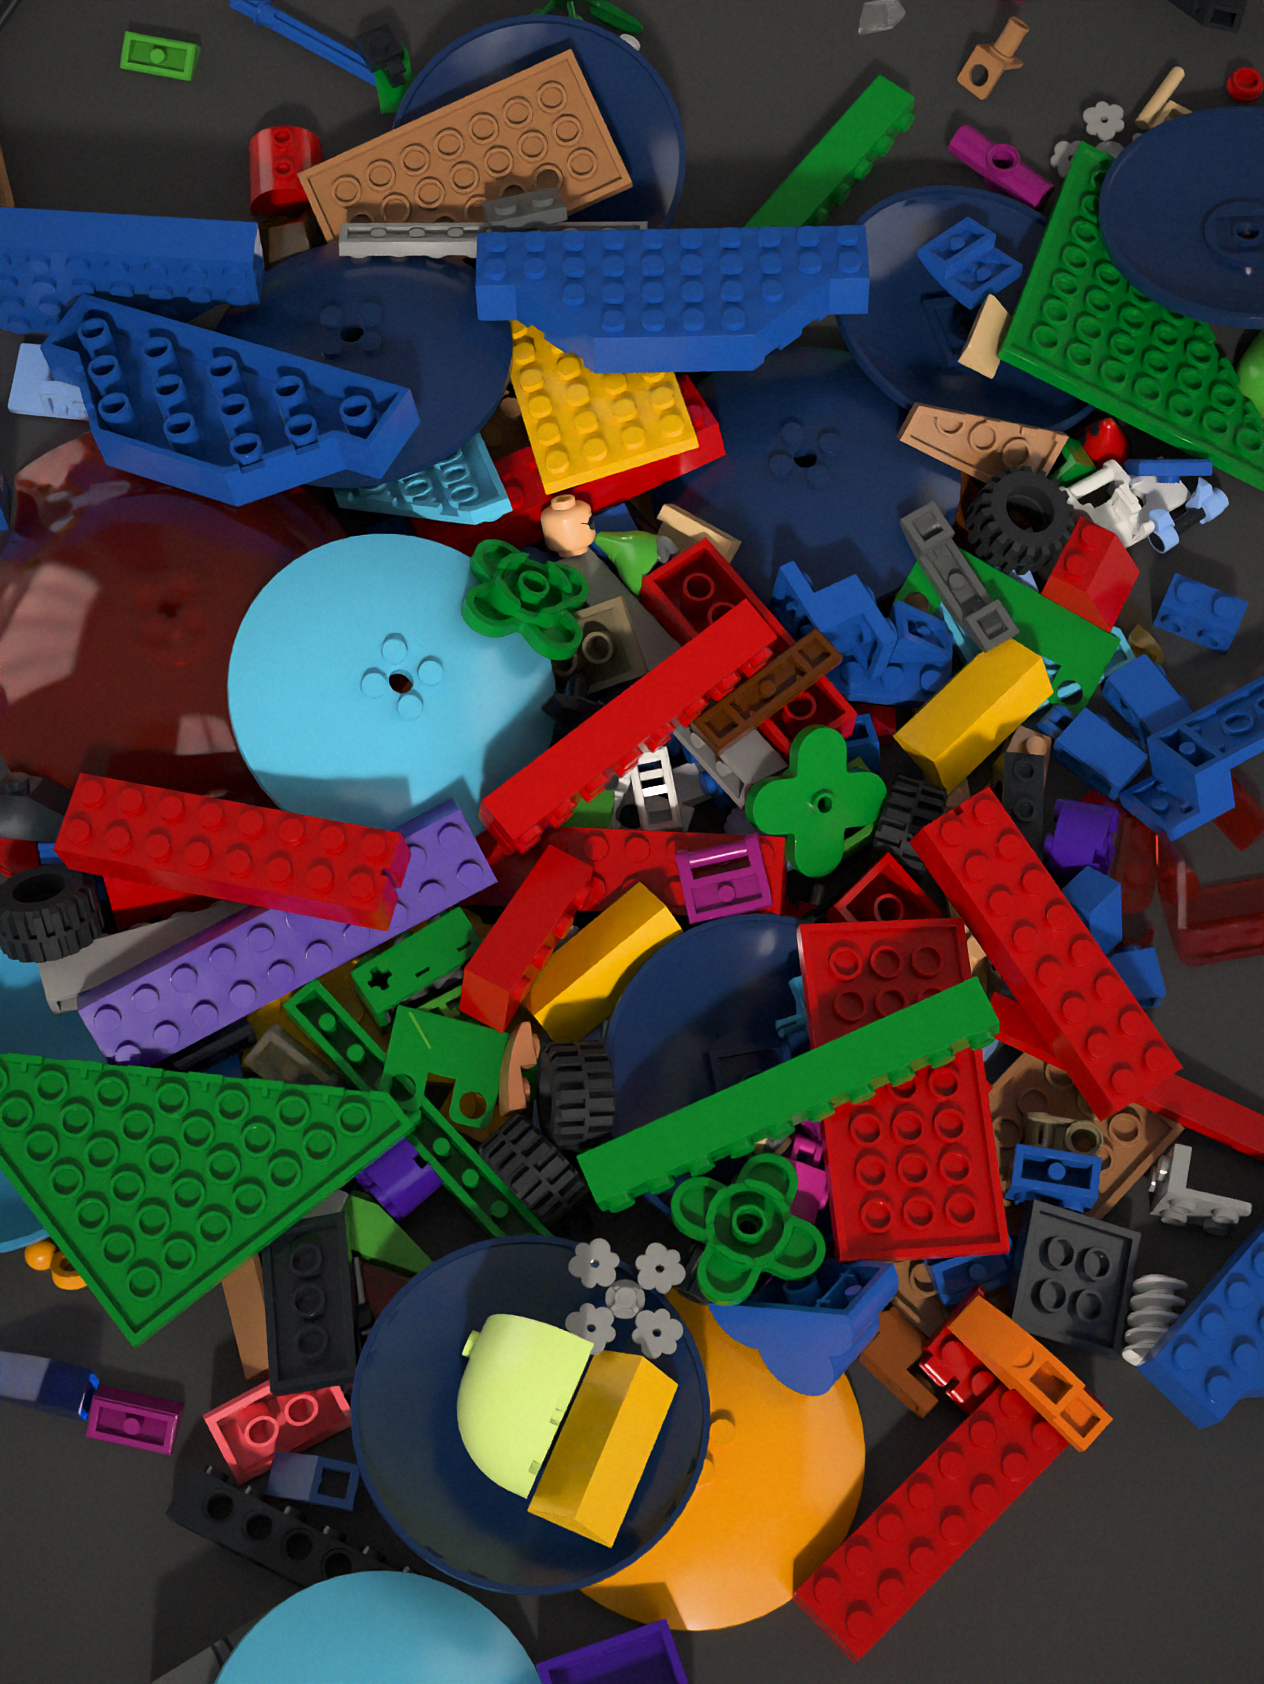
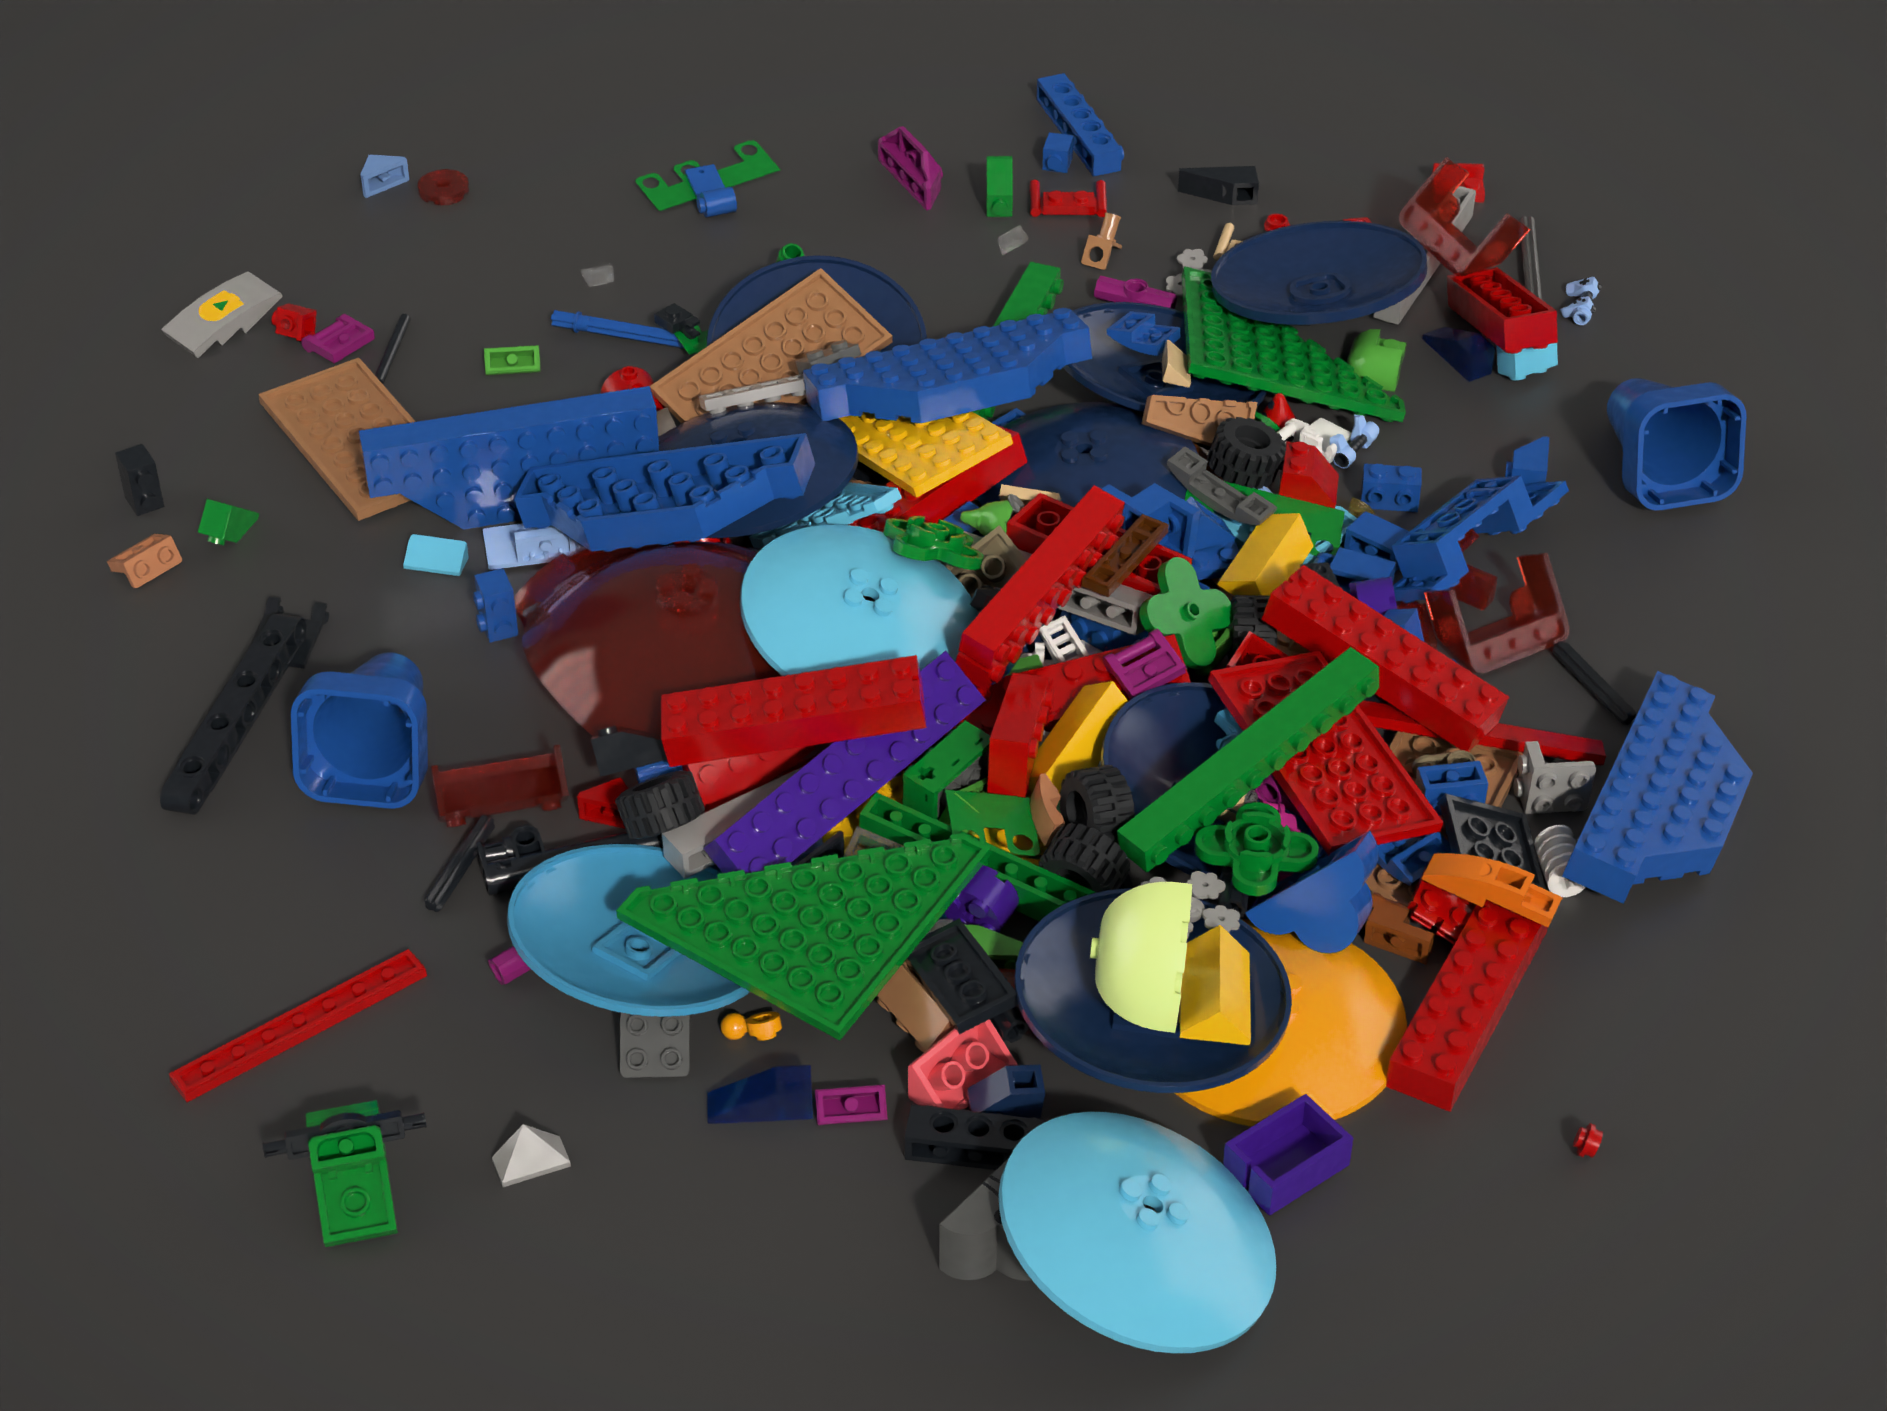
camera: 15 degrees left, 25 degrees down
(568, 526) = (939, 507): light nougat head -> none
(1168, 469) = (1331, 415): blue plate -> none

